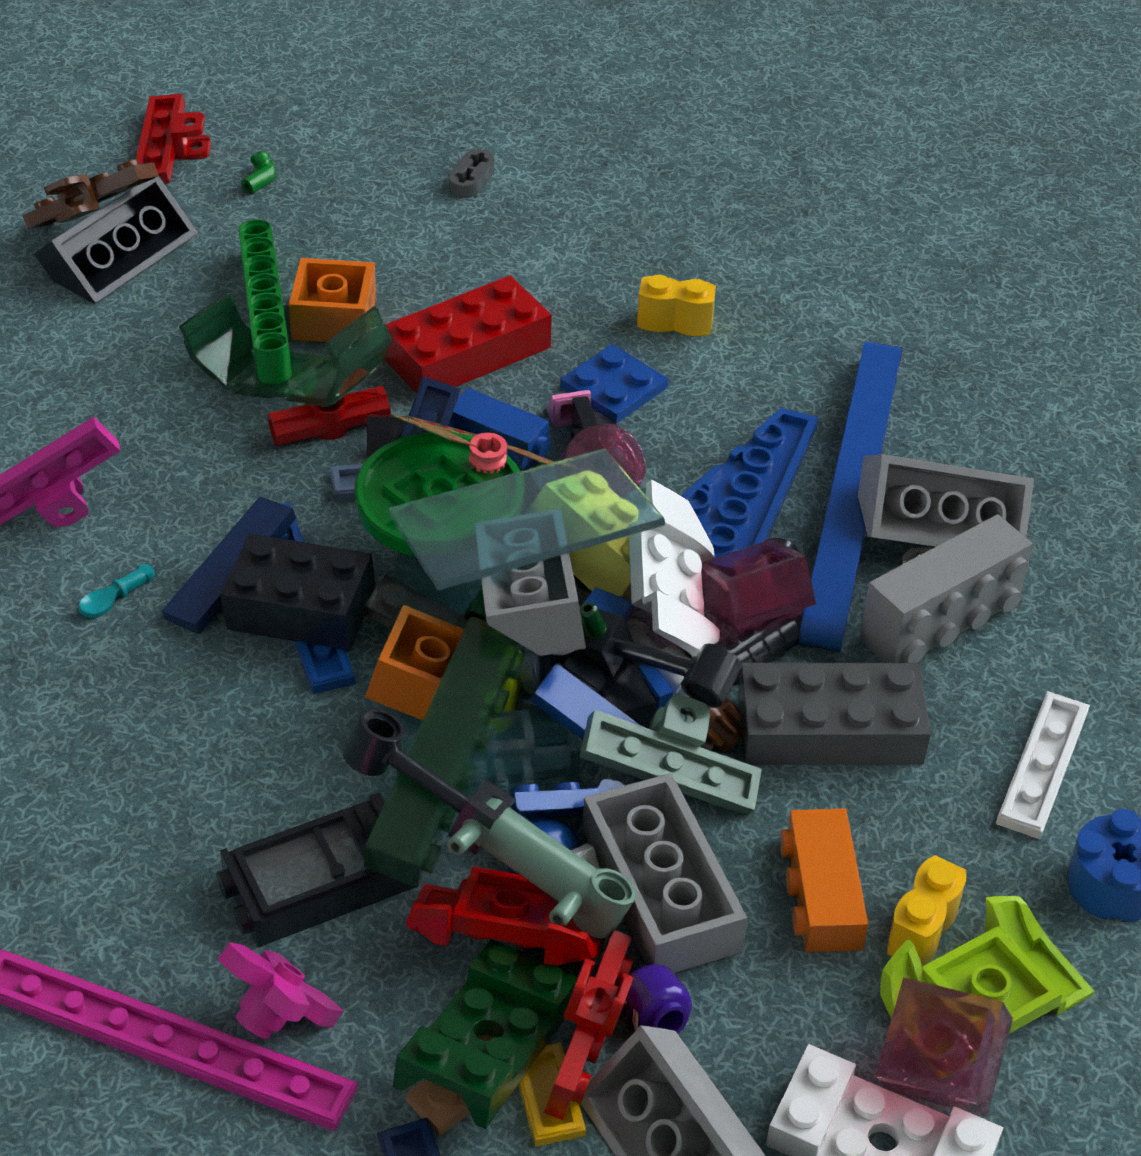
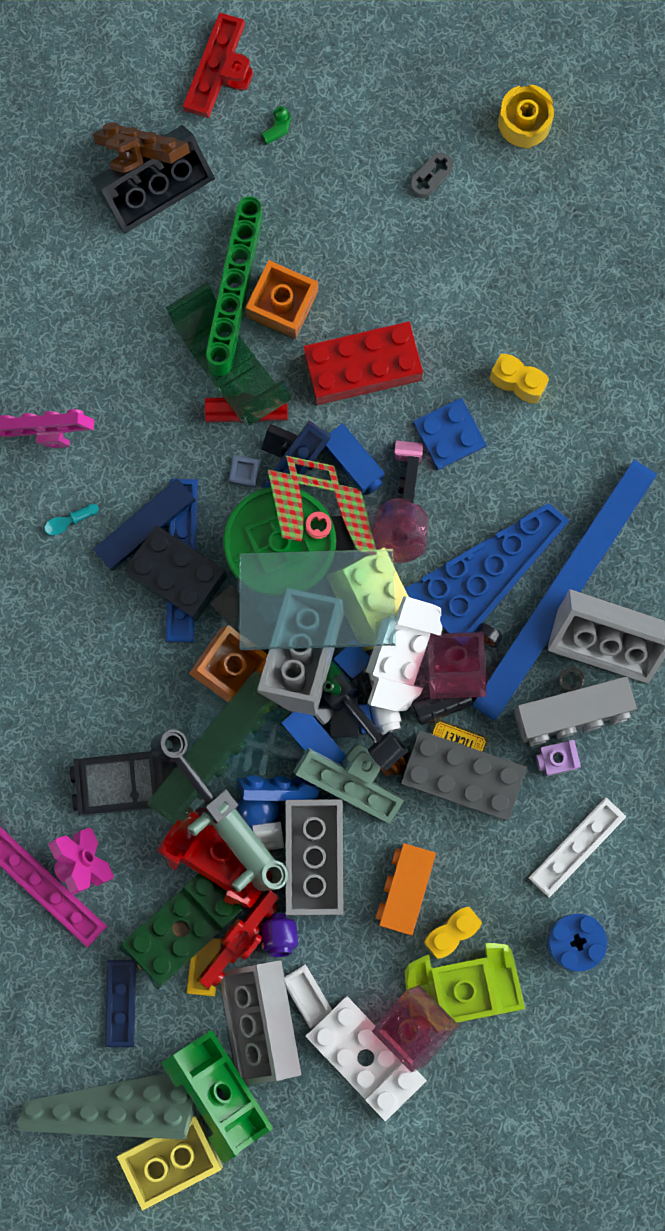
camera: 20 degrees right, 35 degrees up
(560, 98) = (512, 119): none -> yellow brick
(742, 1081) = (307, 996): none -> white tile
(956, 662) = (569, 763): none -> lavender brick

